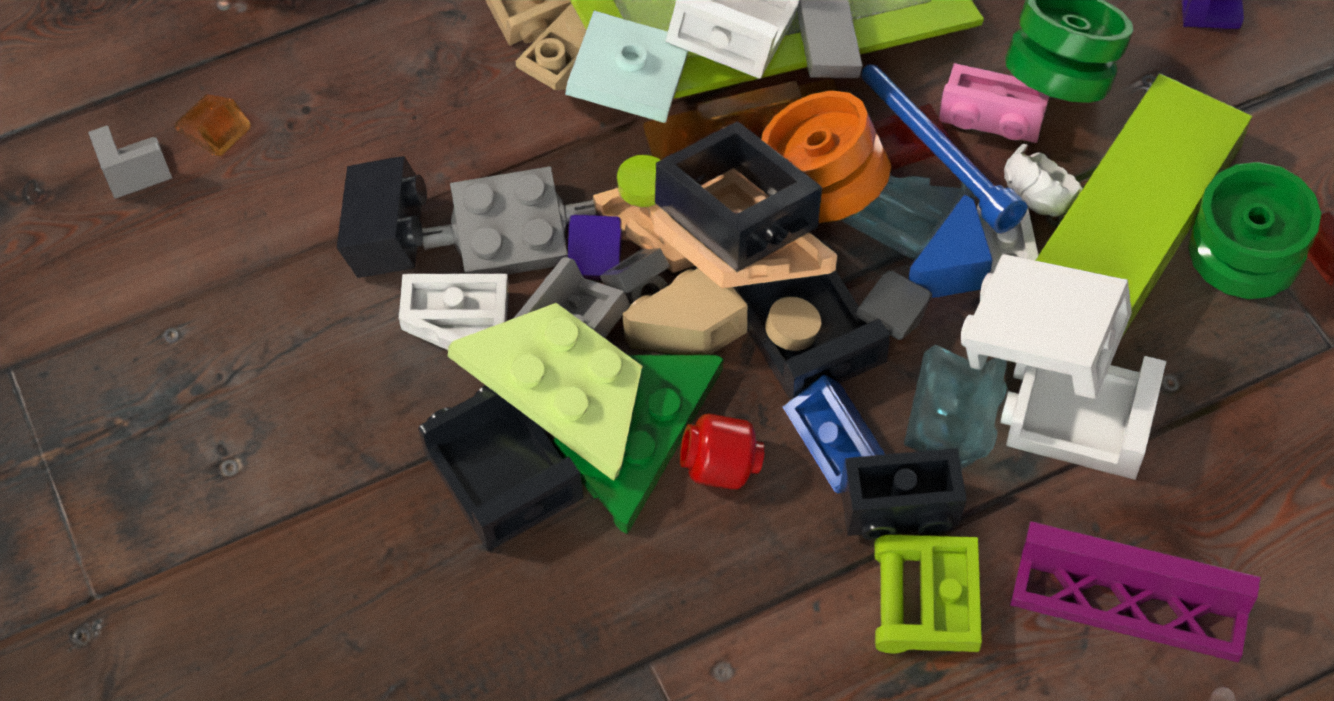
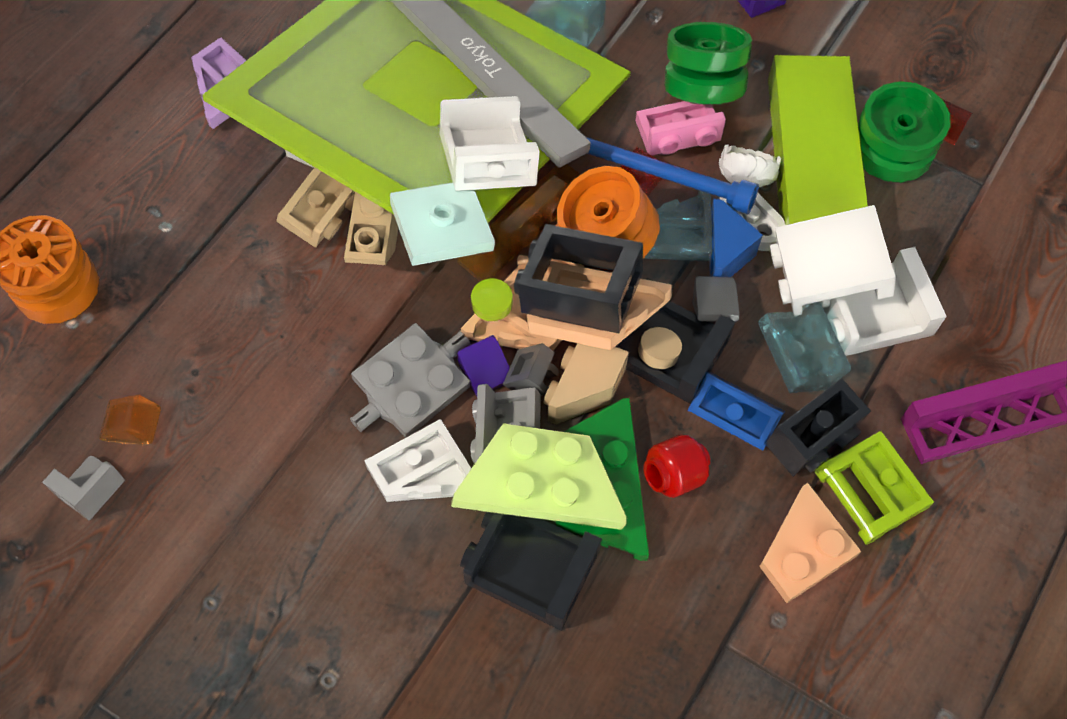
camera: 35 degrees left, 5 degrees up
(381, 217) = (319, 426): black brick -> none
(807, 614) = (807, 547): none -> light nougat wing

